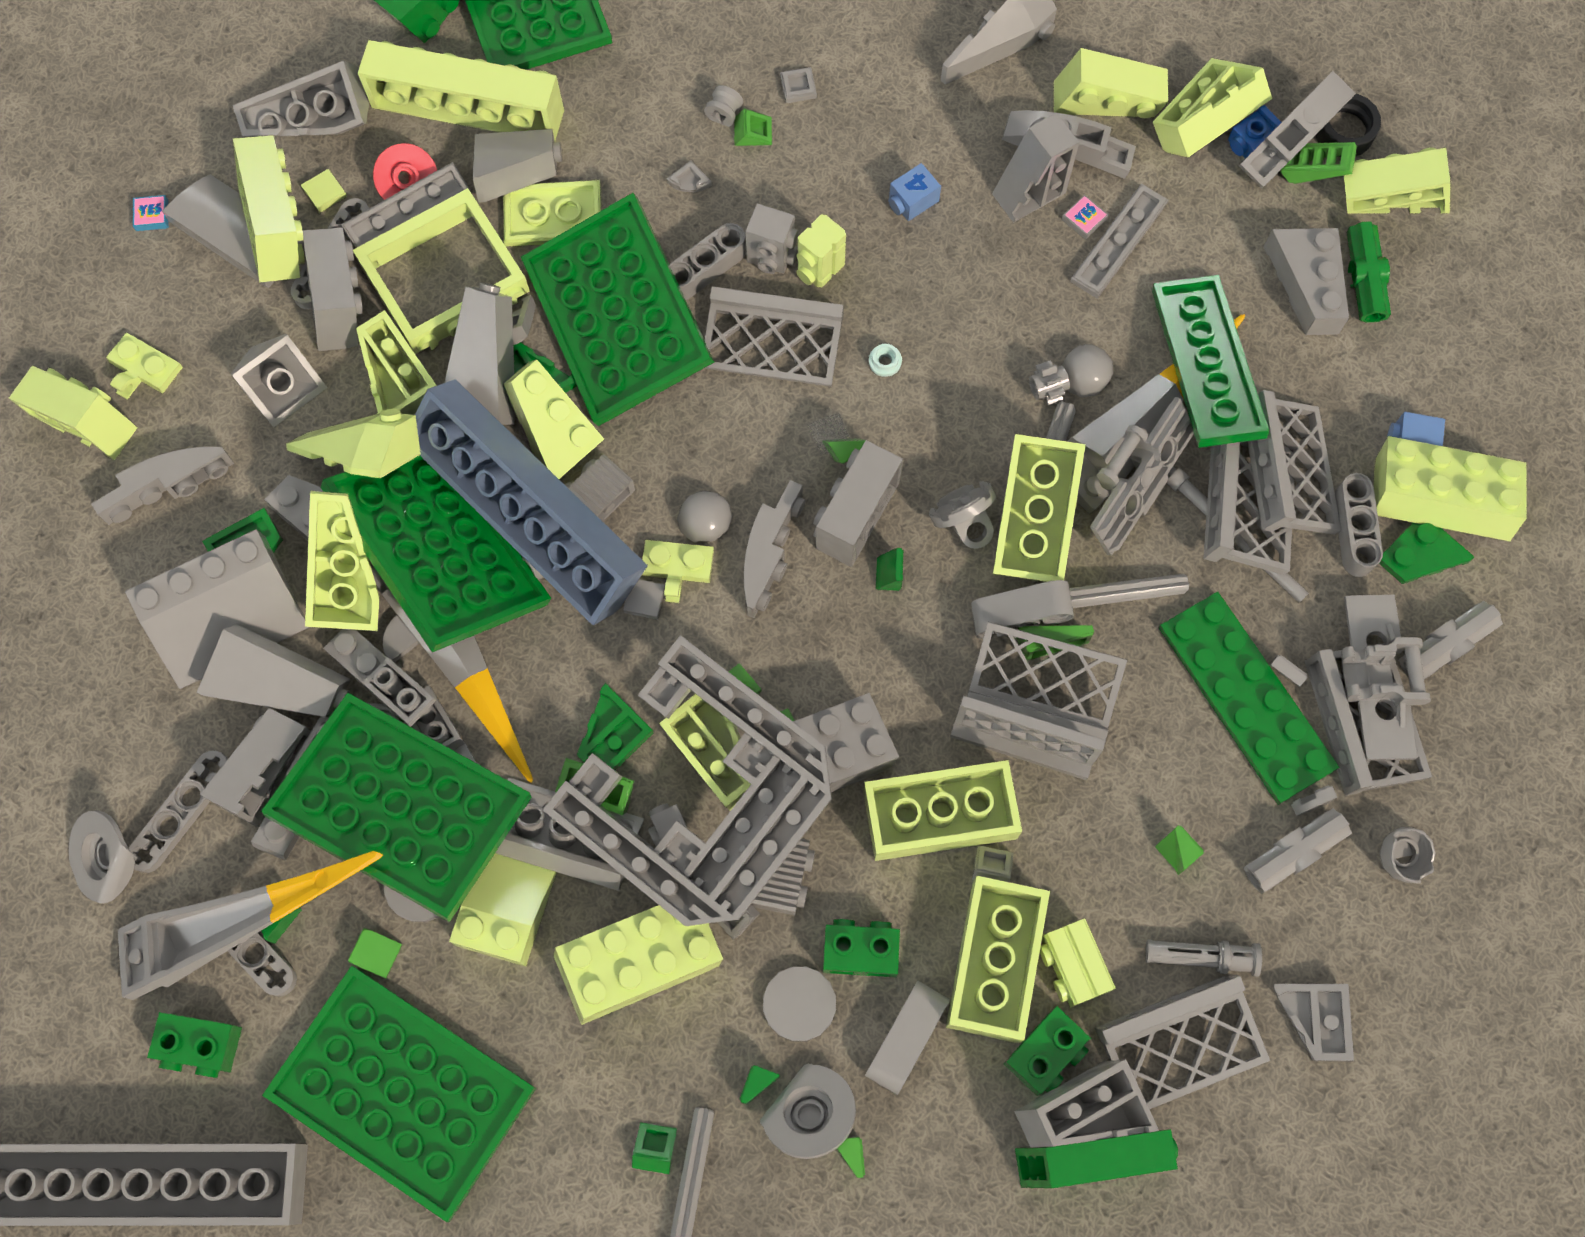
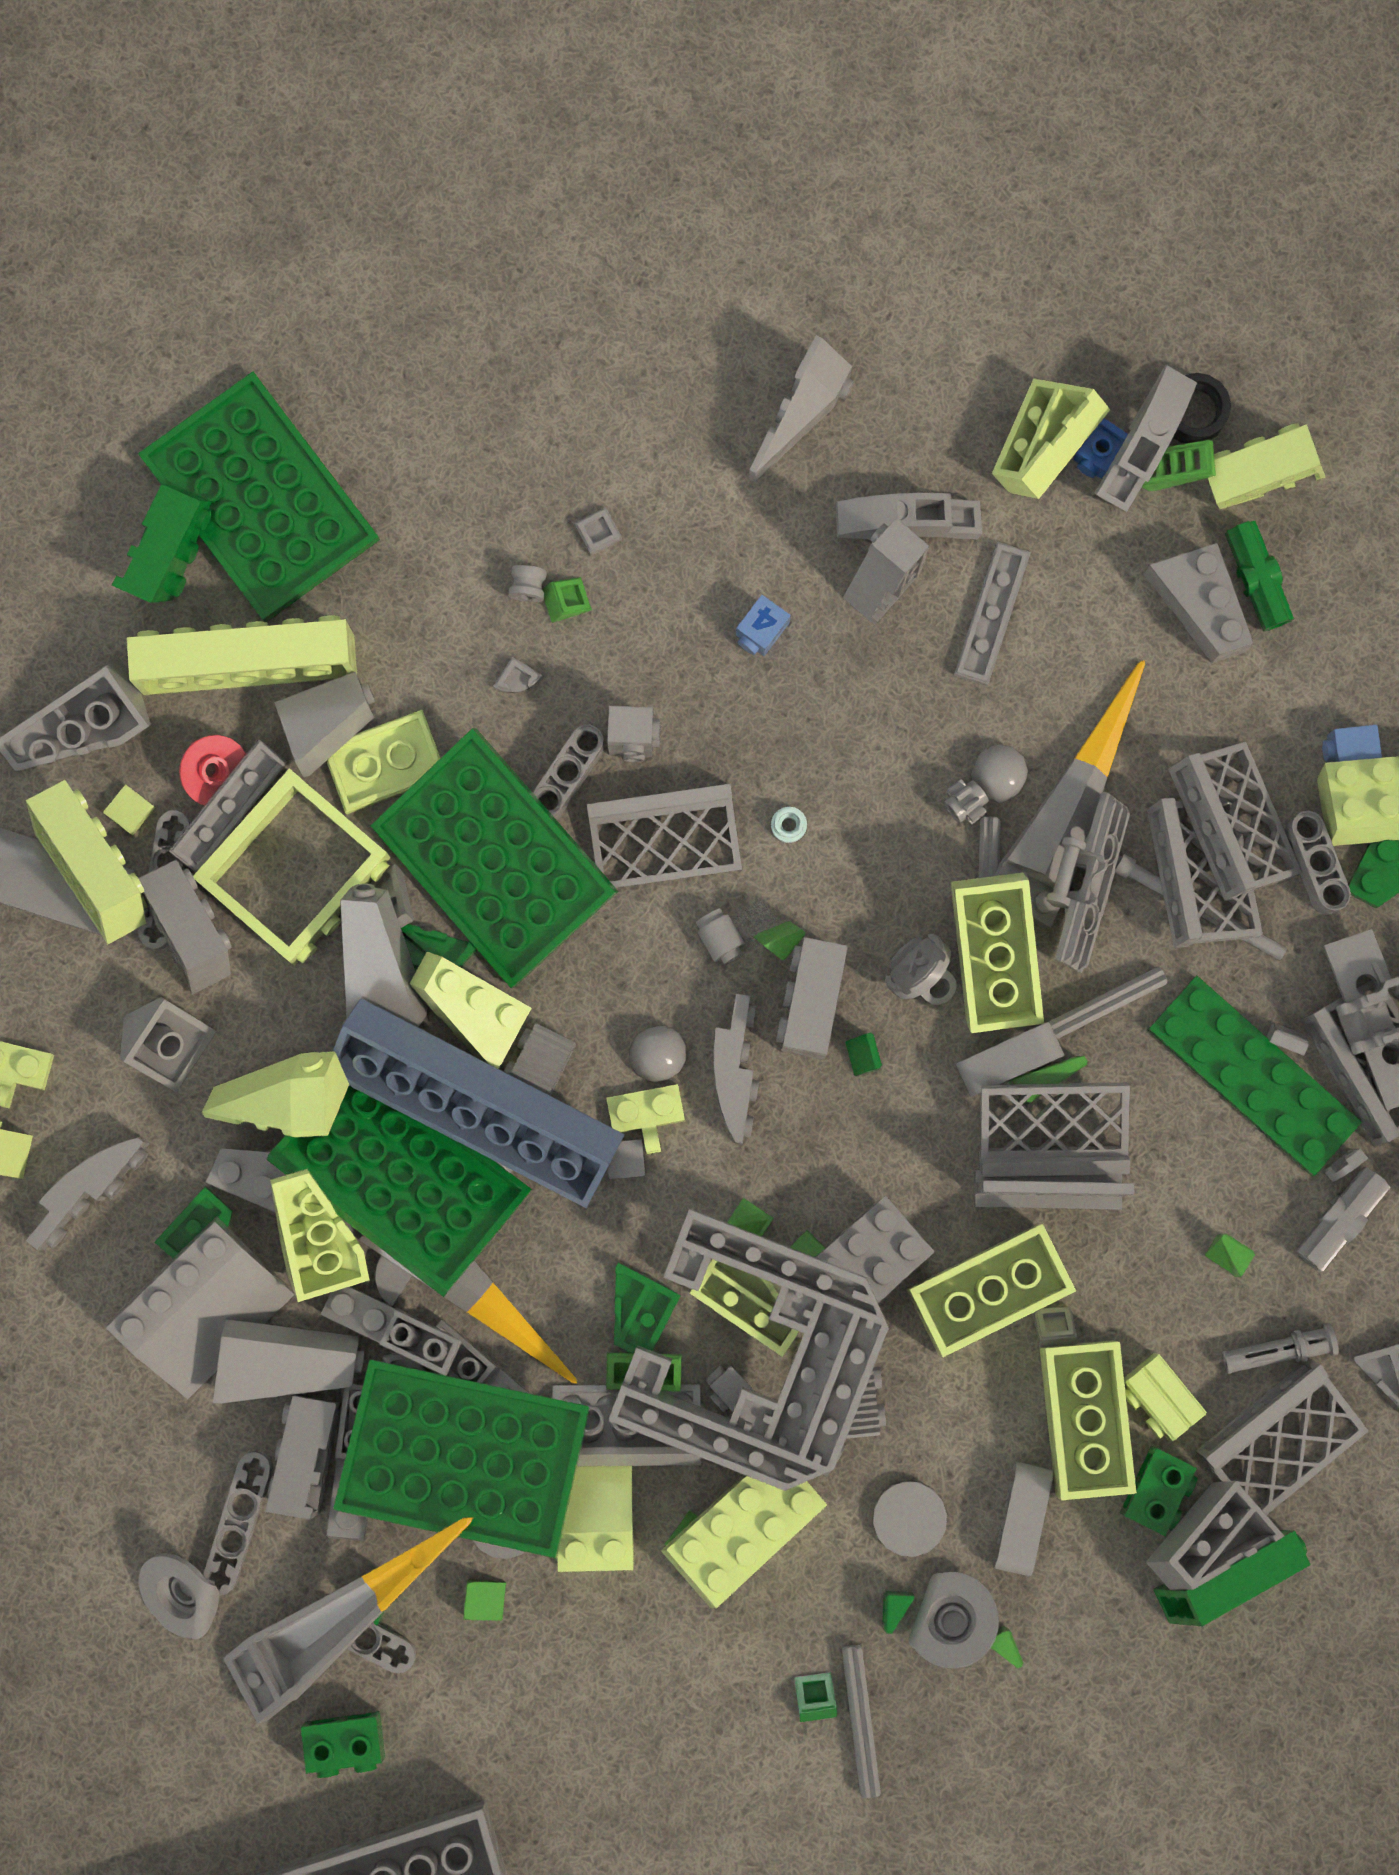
camera: 20 degrees left, 10 degrees up
(392, 366) = (288, 999): yellowish green wedge -> none
(399, 1093) = (556, 1724): green plate -> none
(793, 433) = (720, 936): none -> light grey brick
(821, 251) = (687, 730): yellowish green brick -> none
(861, 949) = (953, 1449): green brick -> none
(1085, 217) = (948, 597): tile -> none
(1110, 86) = (935, 441): yellowish green wedge -> none
(1209, 361) = (1123, 732): plate -> none

